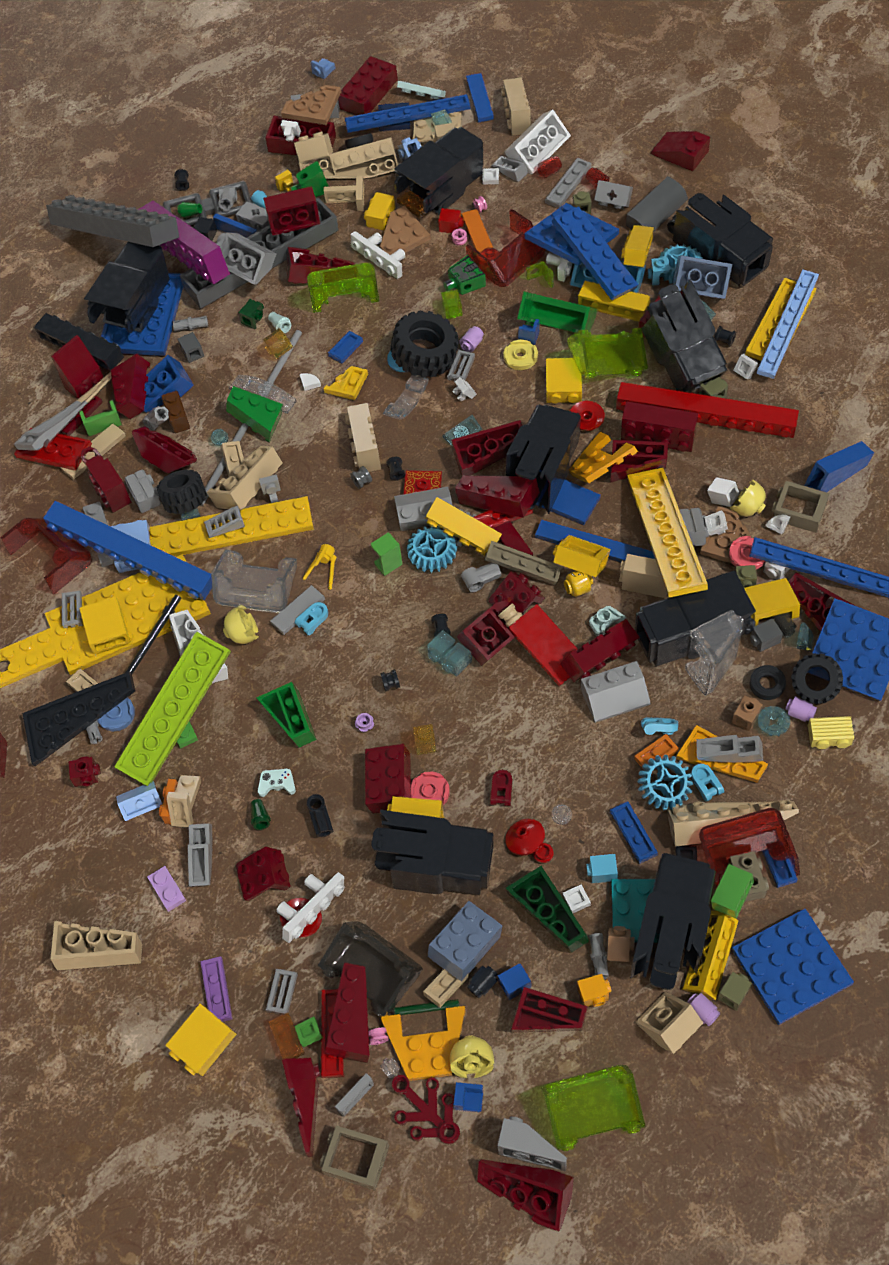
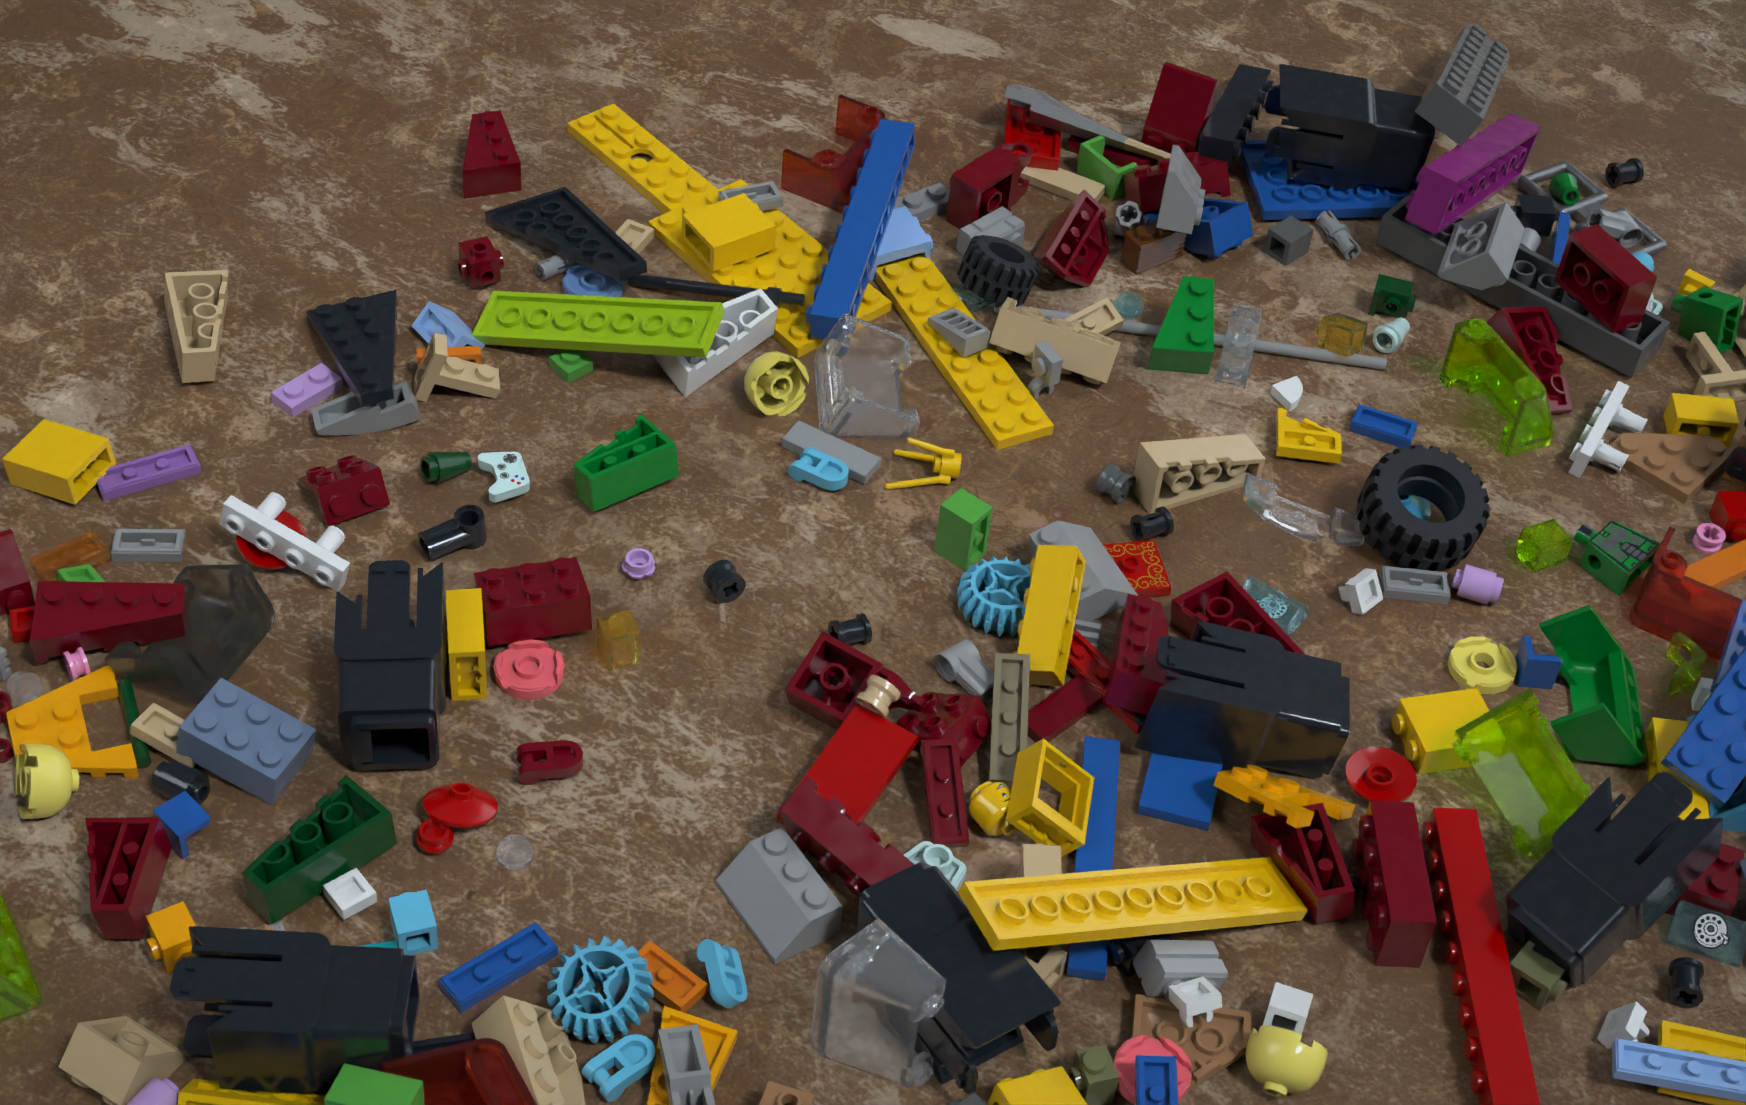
camera: 65 degrees right, 15 degrees down
(130, 850) = (361, 342): none -> black wing
(159, 385) = (1182, 197): none -> light grey slope
(452, 657) = (791, 645): clear light blue piece -> none
(565, 603) = (944, 792): none -> dark red tile

